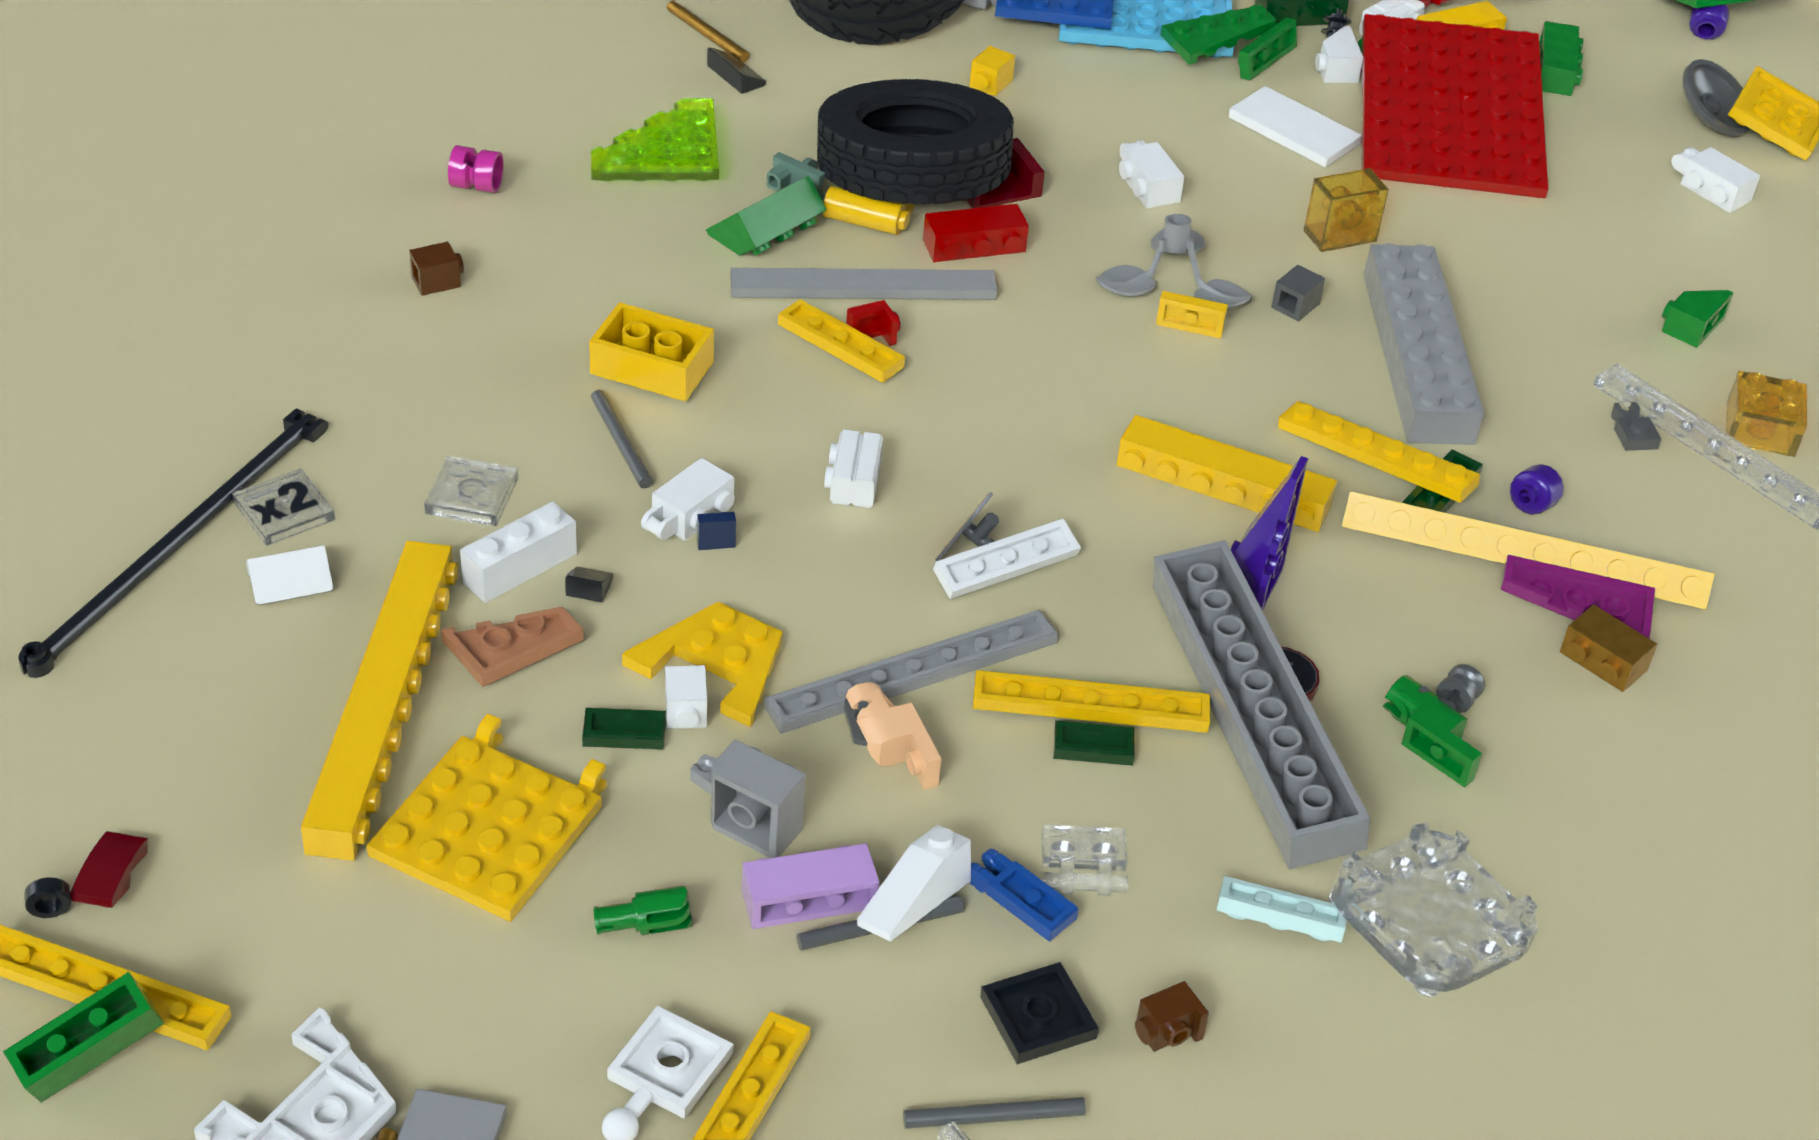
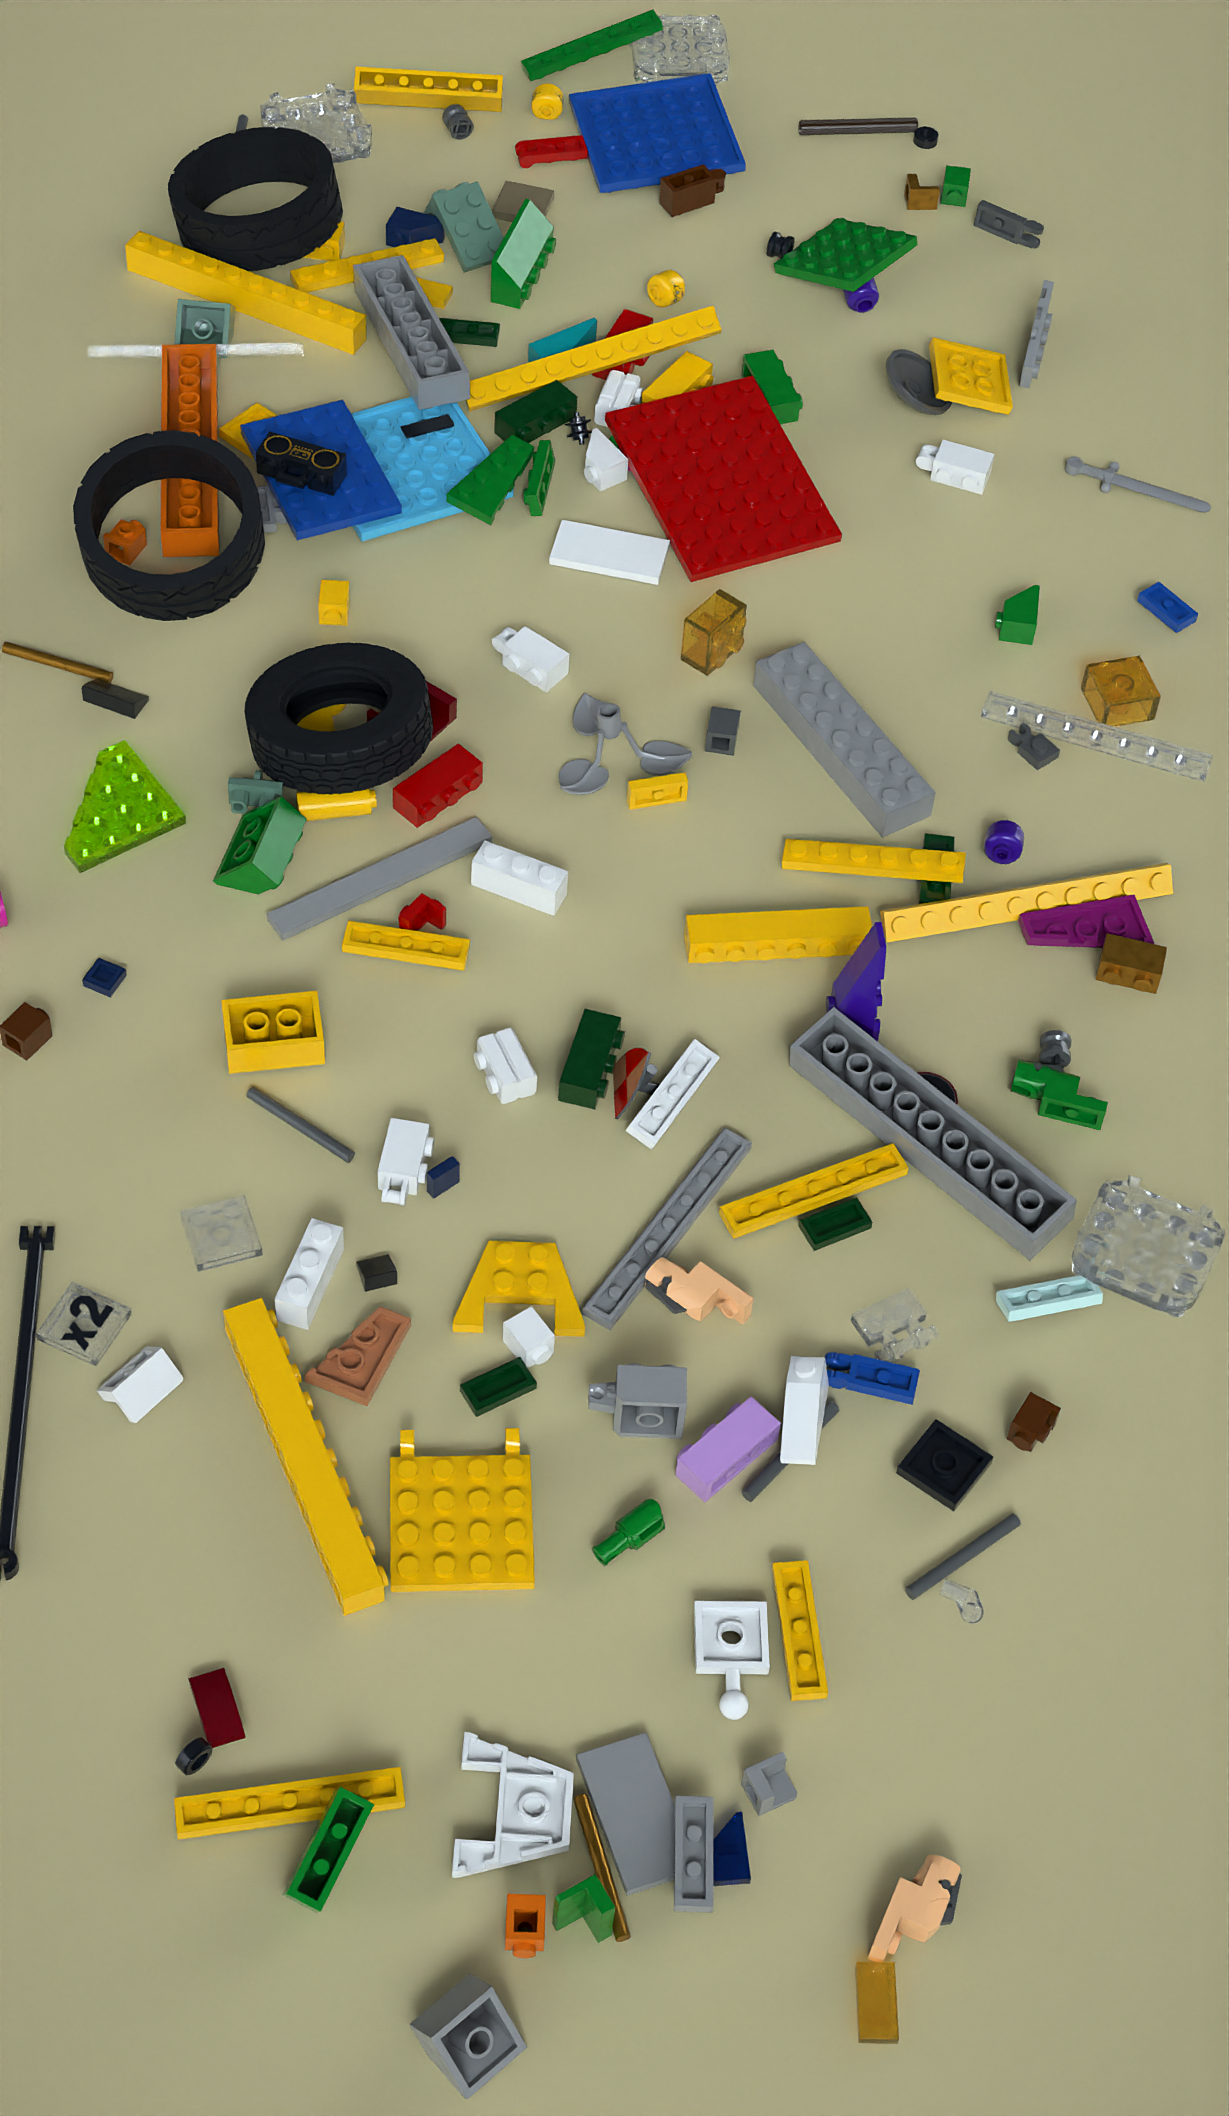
camera: 30 degrees left, 10 degrees up
(543, 260) = (104, 977): none -> dark blue tile
(944, 496) = (591, 1059): none -> dark green brick
(994, 328) = (519, 877): none -> white brick

